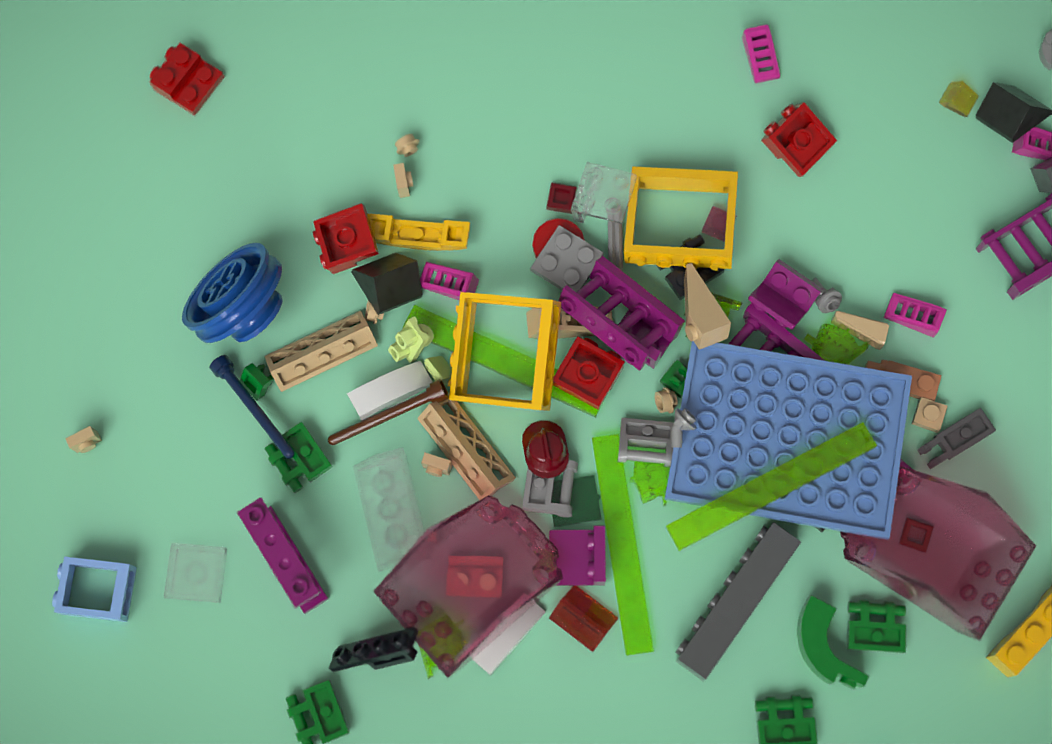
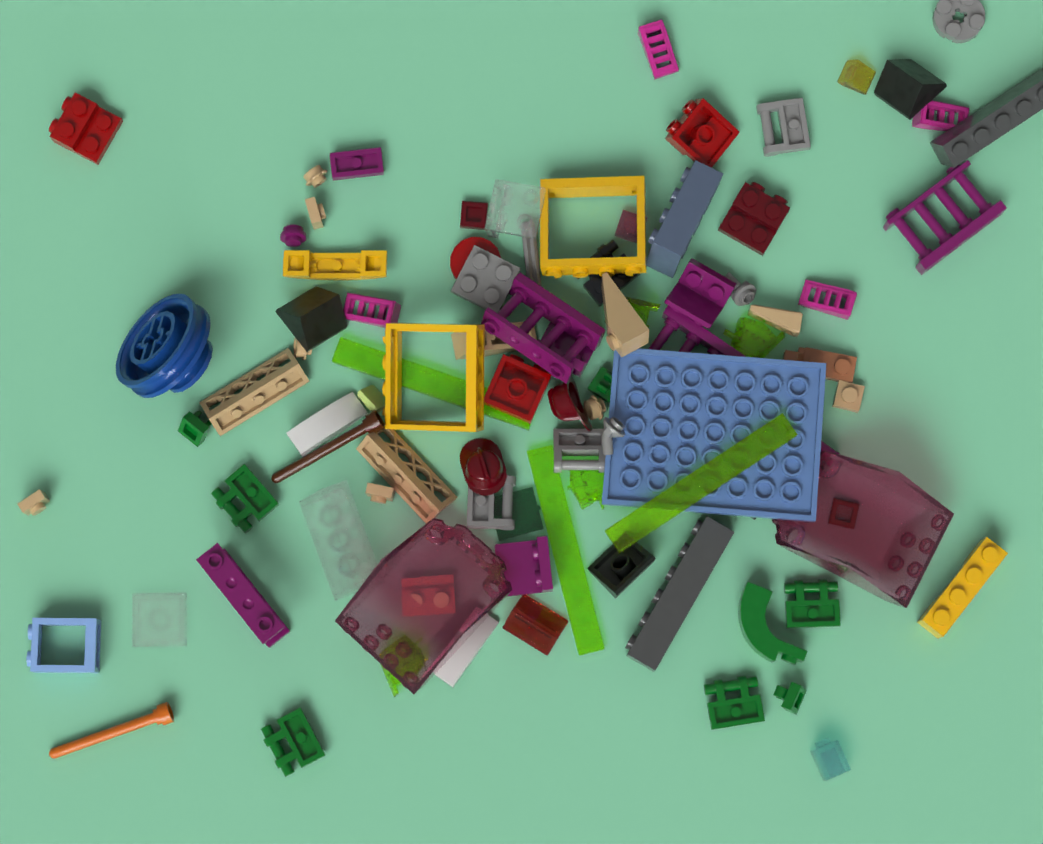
camera: 10 degrees left, 5 degrees up
(185, 672) = (161, 715): none -> orange piece
(223, 368) = (161, 419): dark blue piece -> none
(345, 238) = (265, 278): red plate -> none
(377, 651) = (343, 676): black bracket -> none
(378, 200) = (293, 235): none -> magenta plate
(411, 341) = (342, 374): yellowish green hips -> none
(449, 136) = (356, 163): none -> magenta plate
(637, 392) = (567, 404): none -> dark red piece
(677, 569) = (620, 570): none -> pearl dark grey slope
(772, 219) = (683, 218): none -> sand blue wedge
(846, 226) = (754, 217): none -> dark red plate
(847, 724) = (791, 697): none -> green tile
(891, 140) = (792, 126): none -> light grey plate
(959, 437) = (878, 415): dark grey hinge -> none

